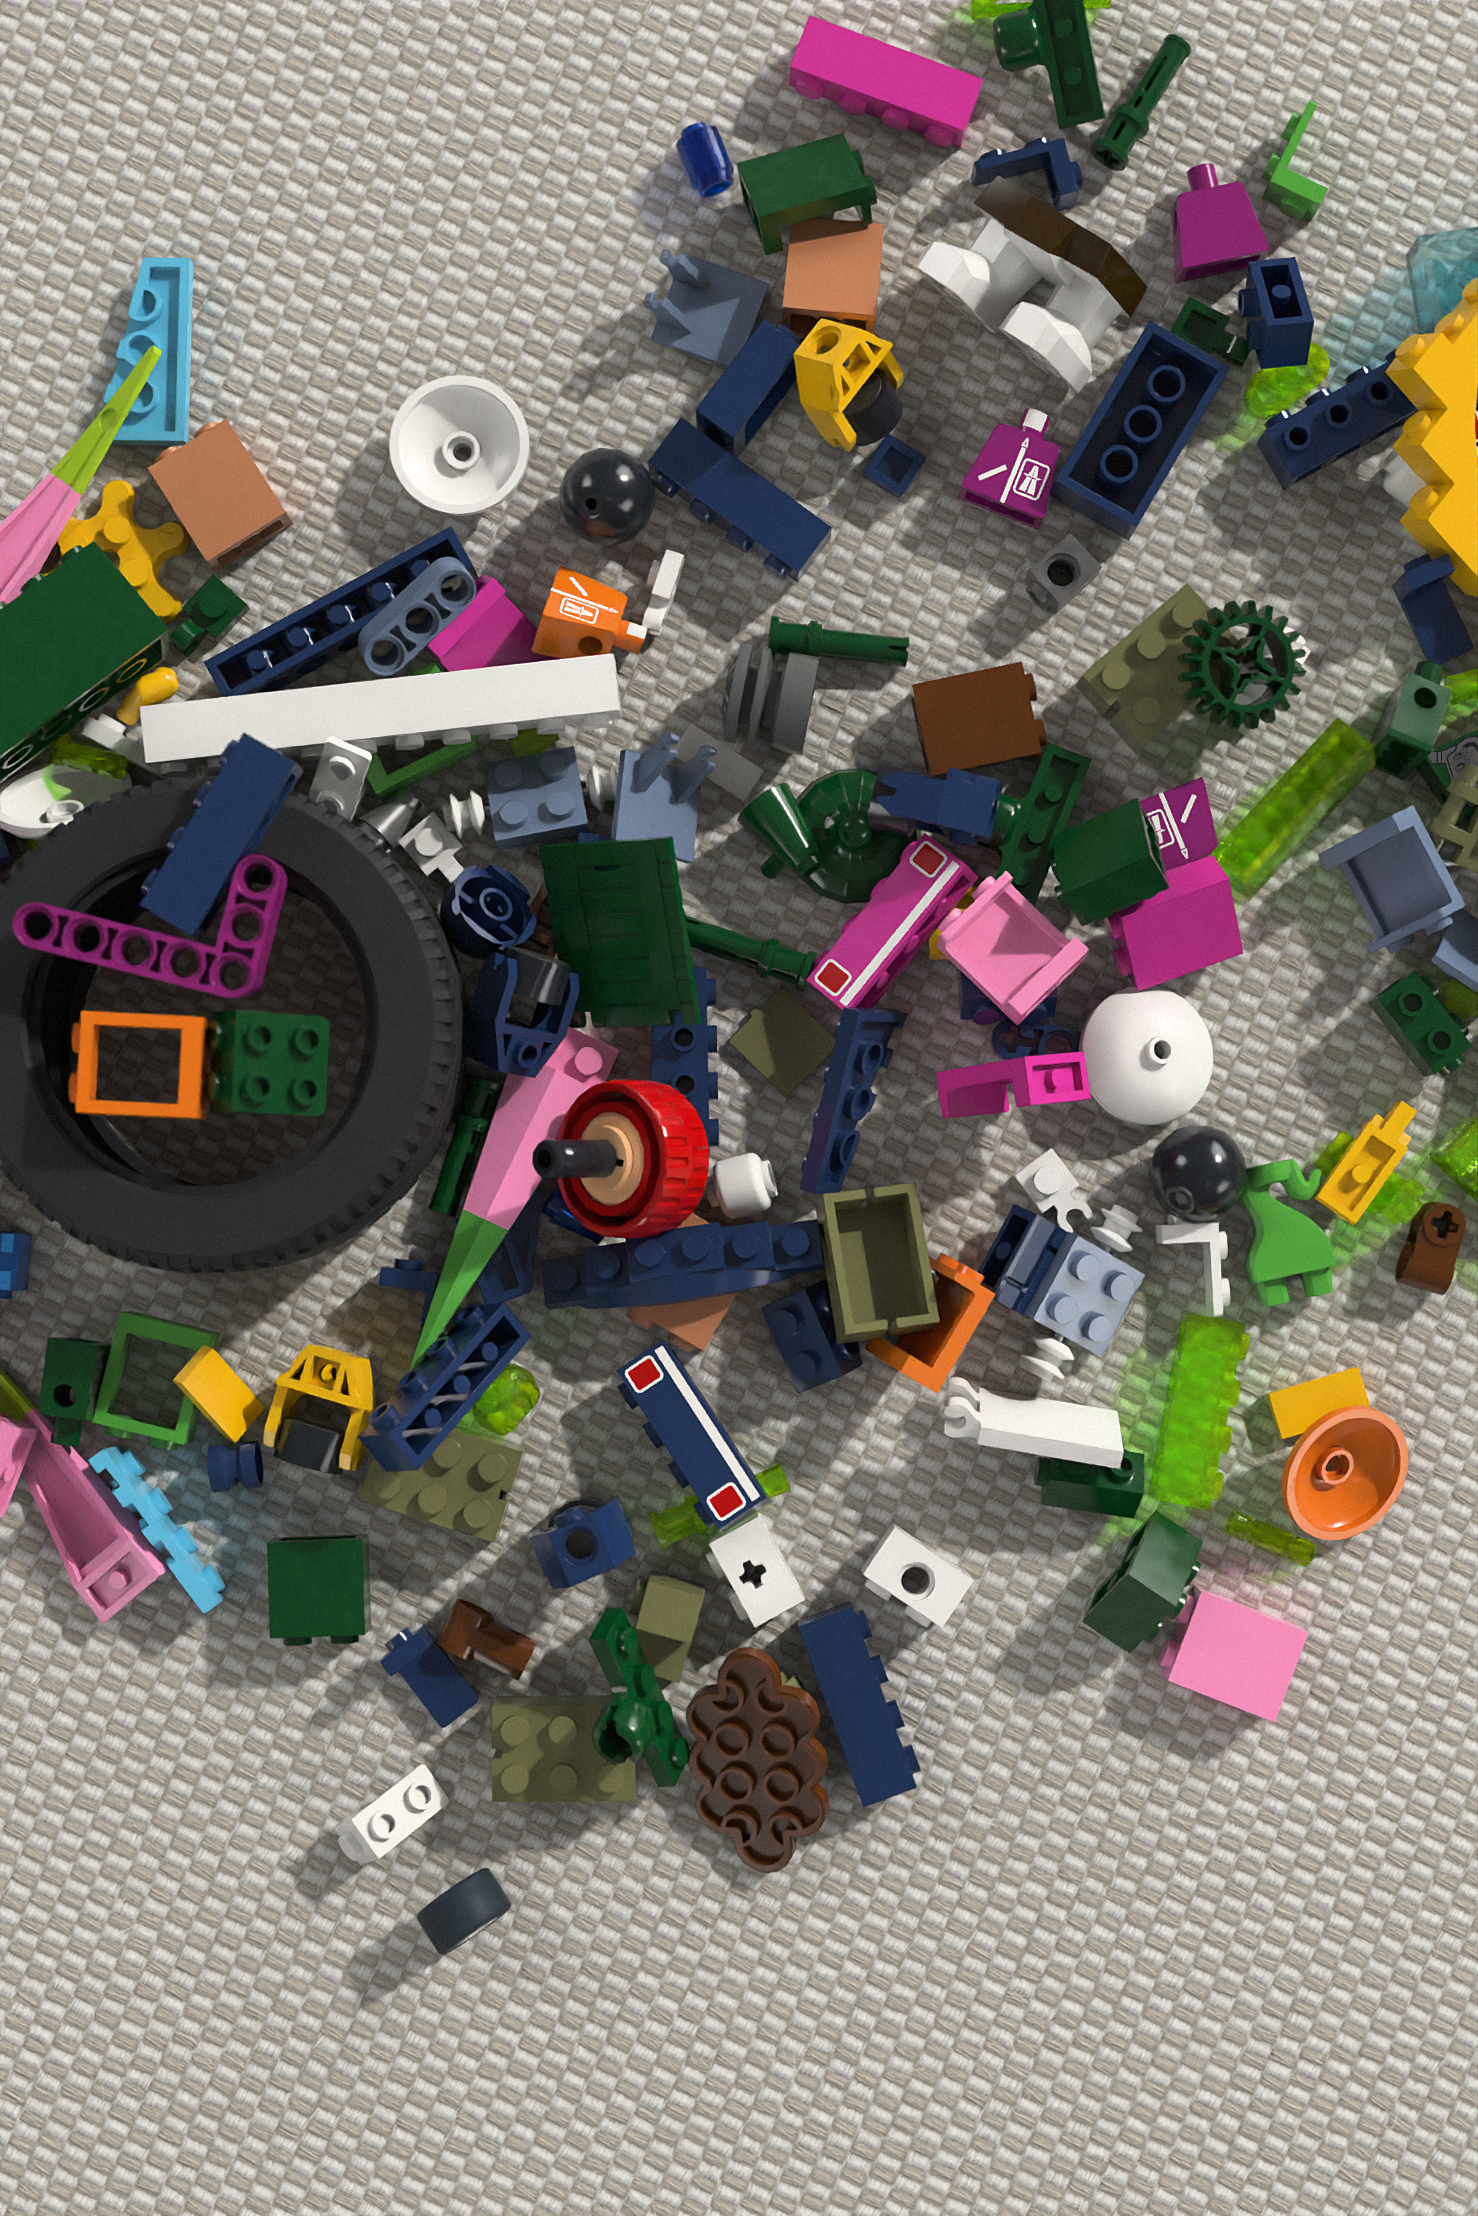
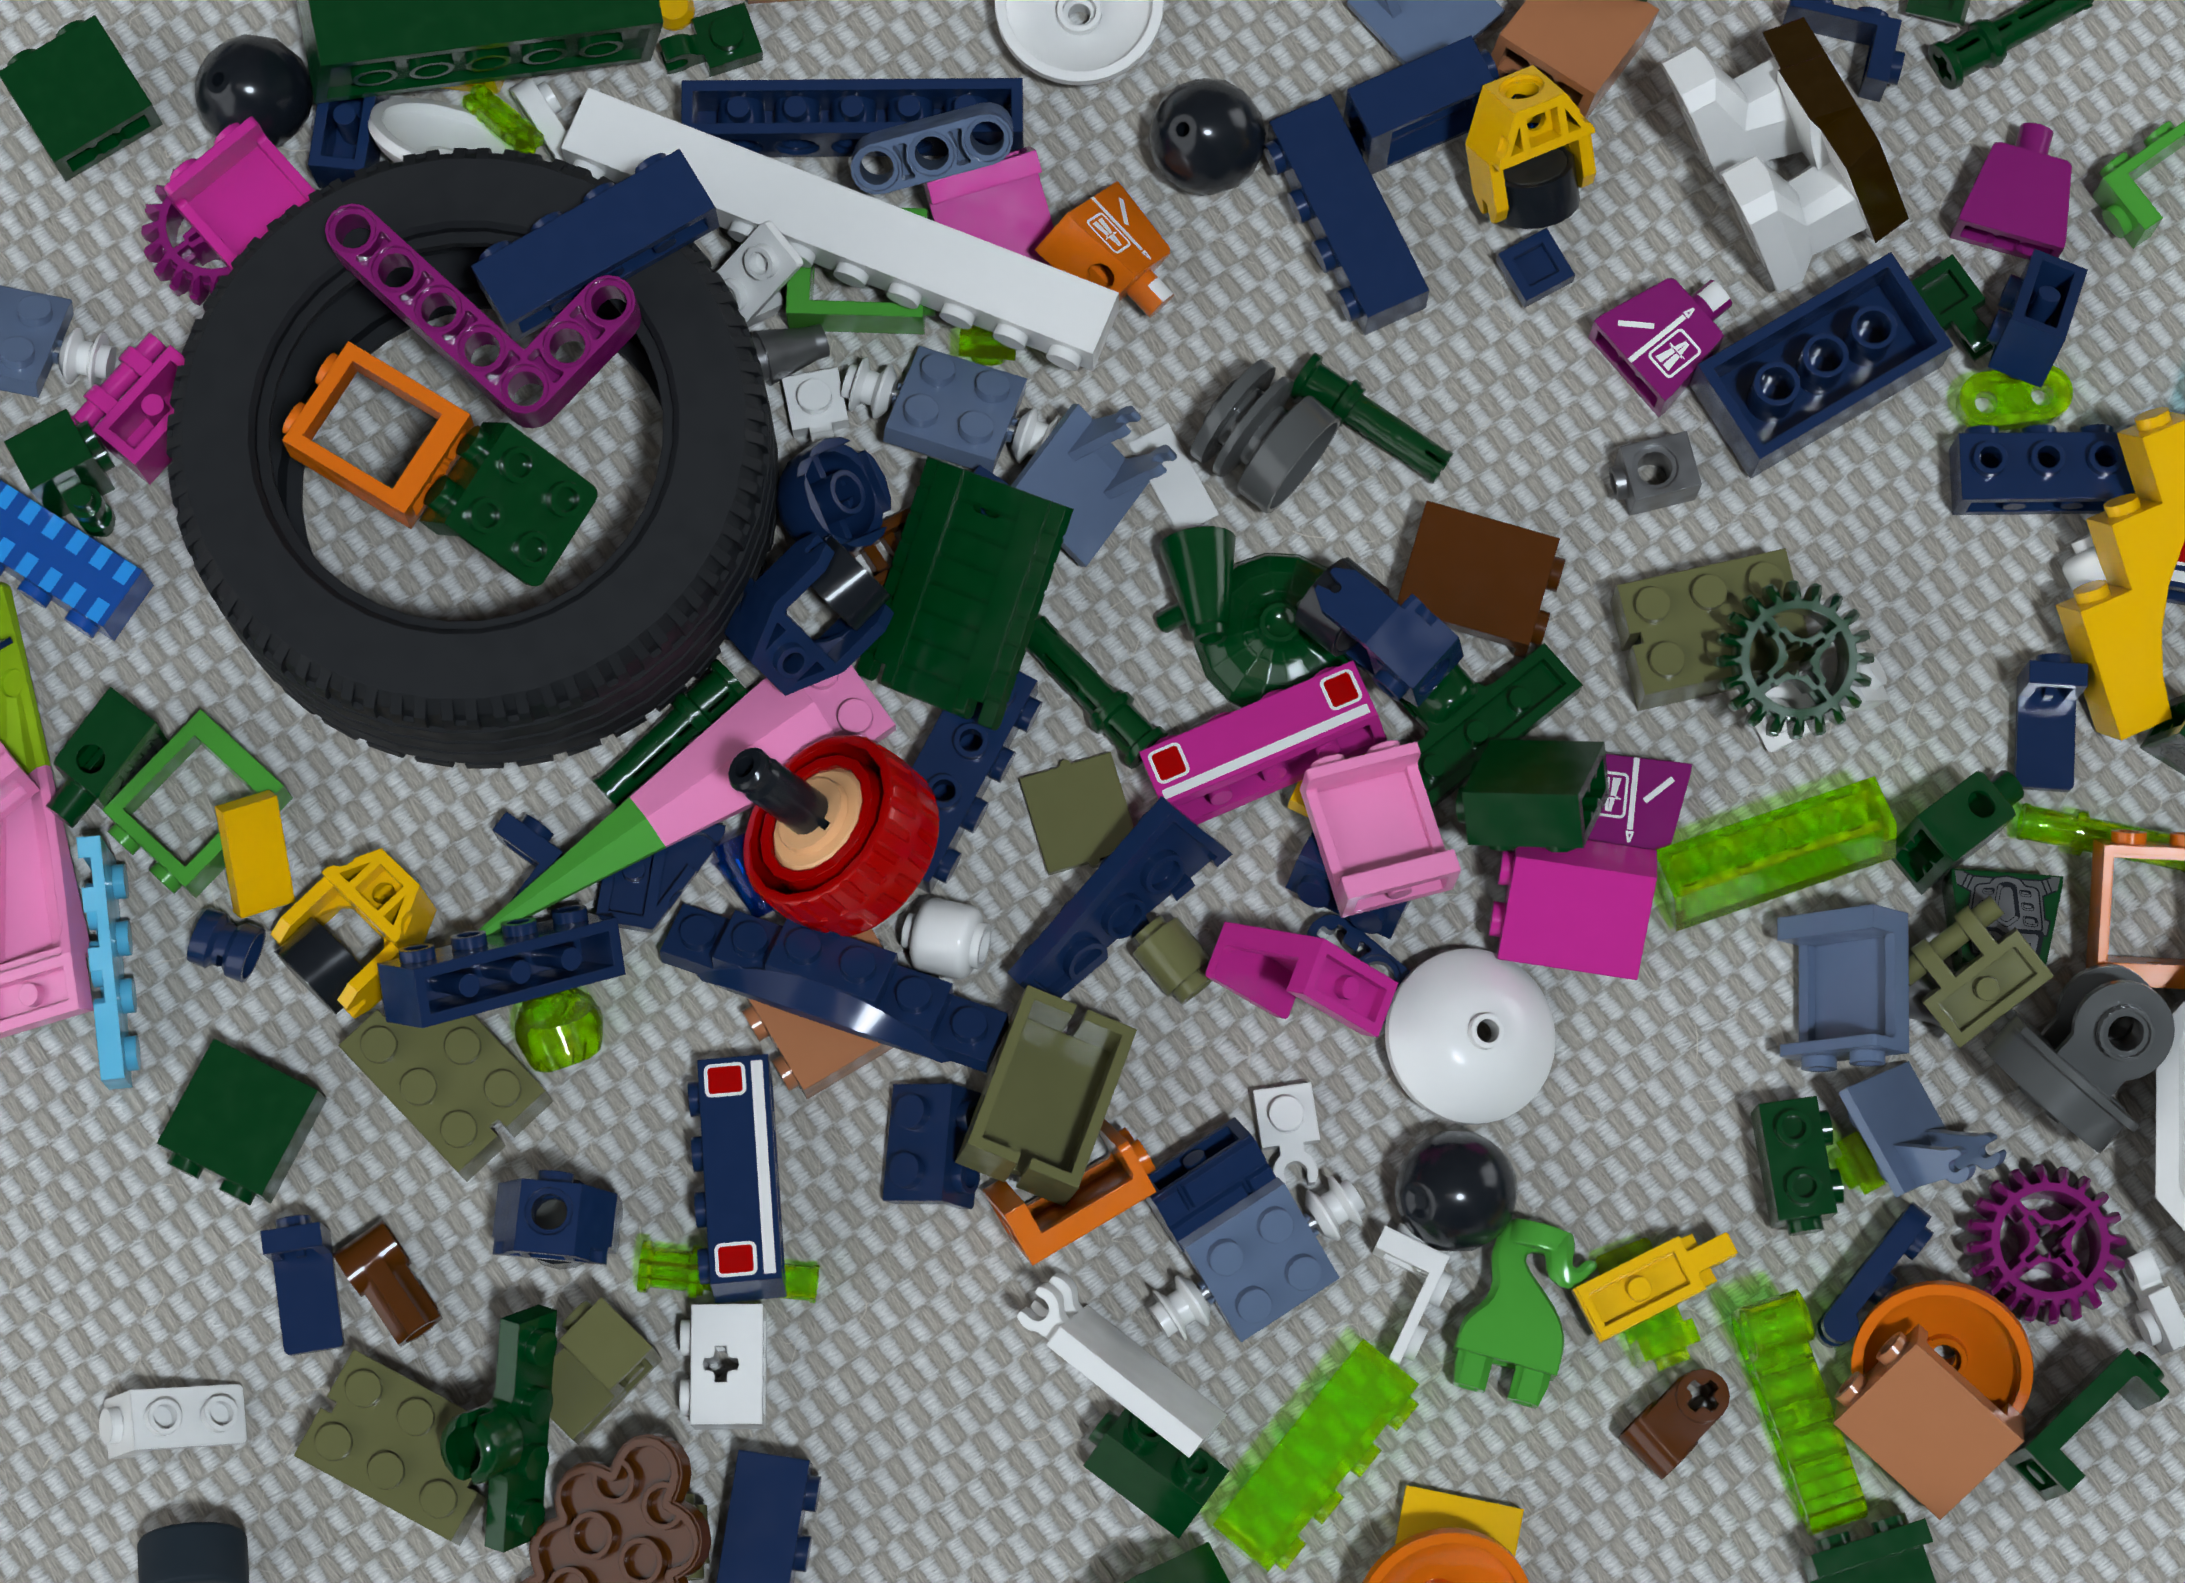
camera: 25 degrees right, 10 degrees down
(148, 691) = (621, 83): yellow arm -> none
(664, 581) = (1220, 258): white plate -> none
(909, 1112) = (1173, 958): none -> olive brick
(944, 1584) = (891, 1435): white brick -> none

